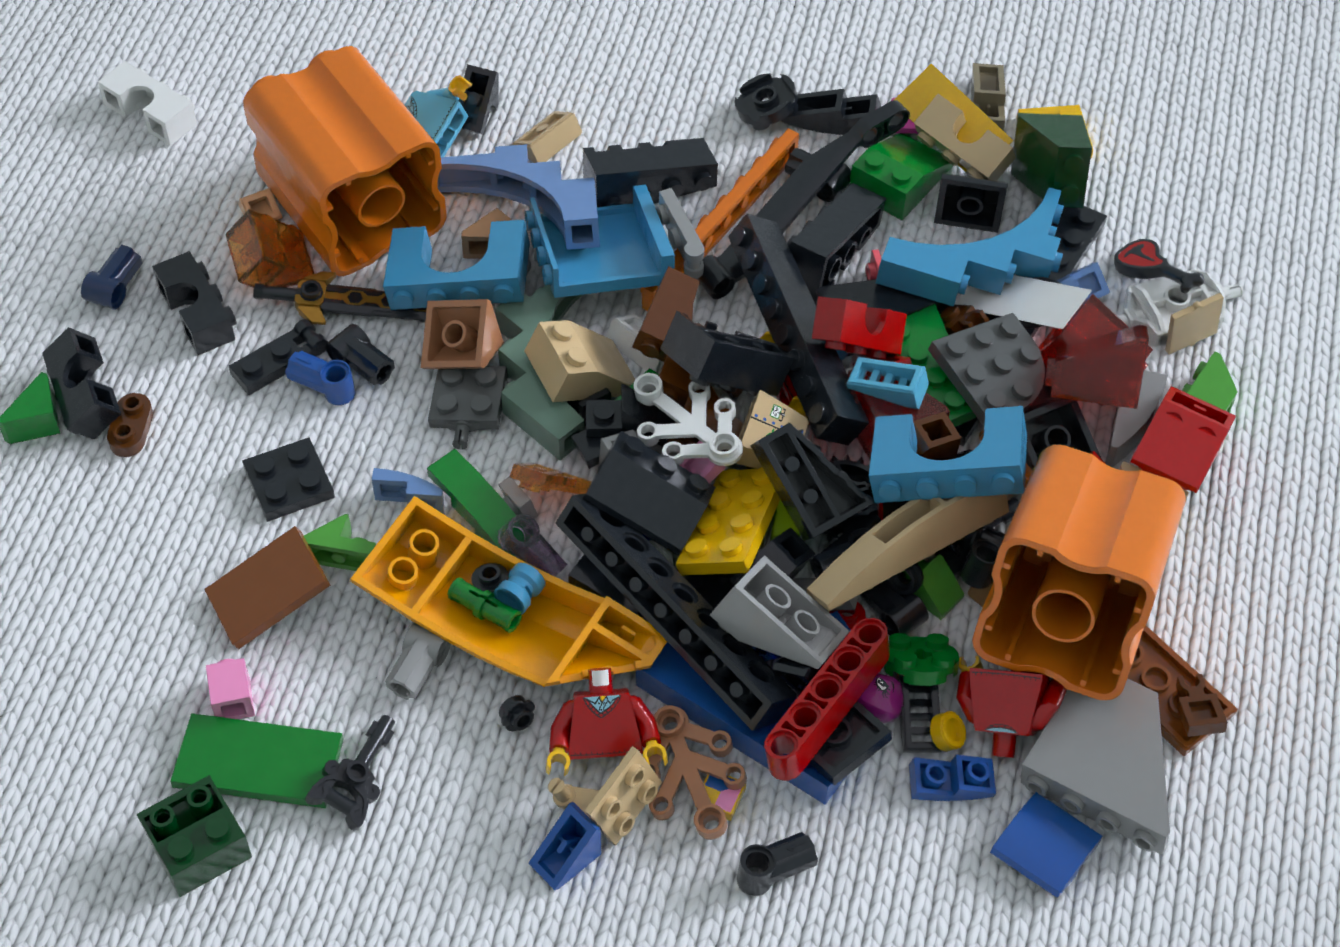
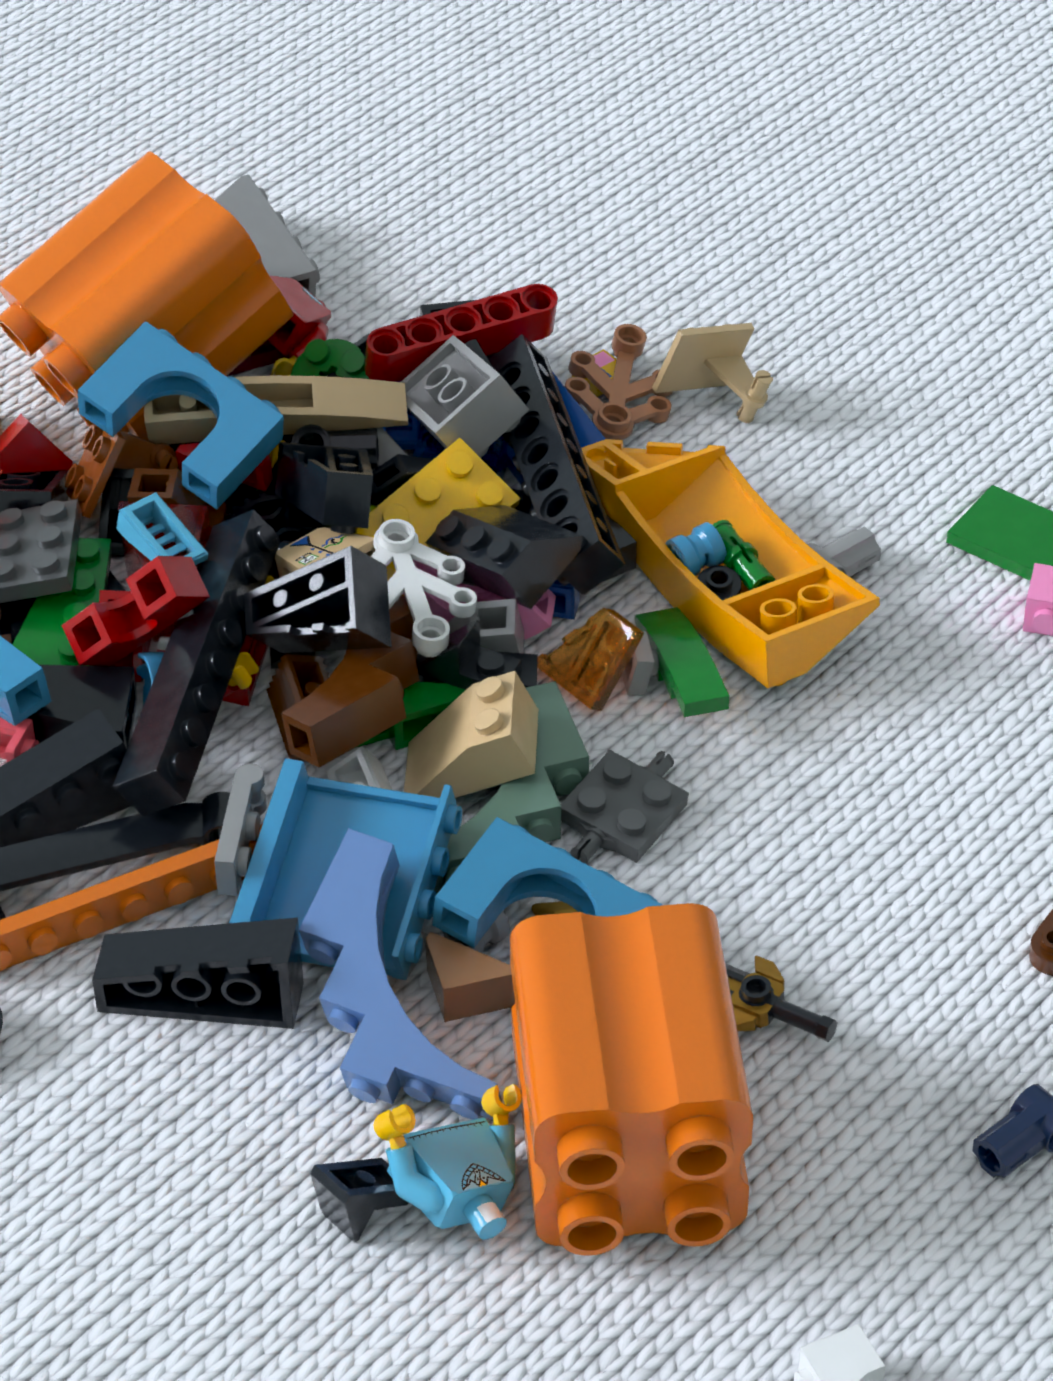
camera: 150 degrees left, 10 degrees down
(186, 283) = (923, 1080): black arch -> none
(261, 202) = (770, 1179): light nougat slope -> none
(267, 587) = (970, 668): dark orange tile -> none
(268, 251) = (795, 1073): clear orange slope -> none
(271, 360) = (837, 947): black plate -> none
(288, 479) = (891, 799): black plate -> none
(330, 378) = (787, 880): blue piece -> none
(336, 548) = (868, 689): bright green slope -> none
(353, 777) = (953, 490): black piece -> none
(356, 349) = (732, 899): black piece -> none
(402, 487) = (758, 722): medium blue slope -> none
(460, 334) = (601, 831): nougat slope -> none
(516, 713) = (763, 482): black plate -> none
(534, 549) = (658, 596): piece -> none
(550, 136) = (287, 1126): tan slope -> none
(567, 847) = (788, 375): blue slope -> none
(602, 724) = (694, 428): red torso -> none
(777, 861) = (603, 302): black piece -> none
(948, 731) = (355, 331): yellow tile -> none
(952, 781) = (369, 308): blue slope -> none
(1046, 844) = (341, 240): blue slope -> none

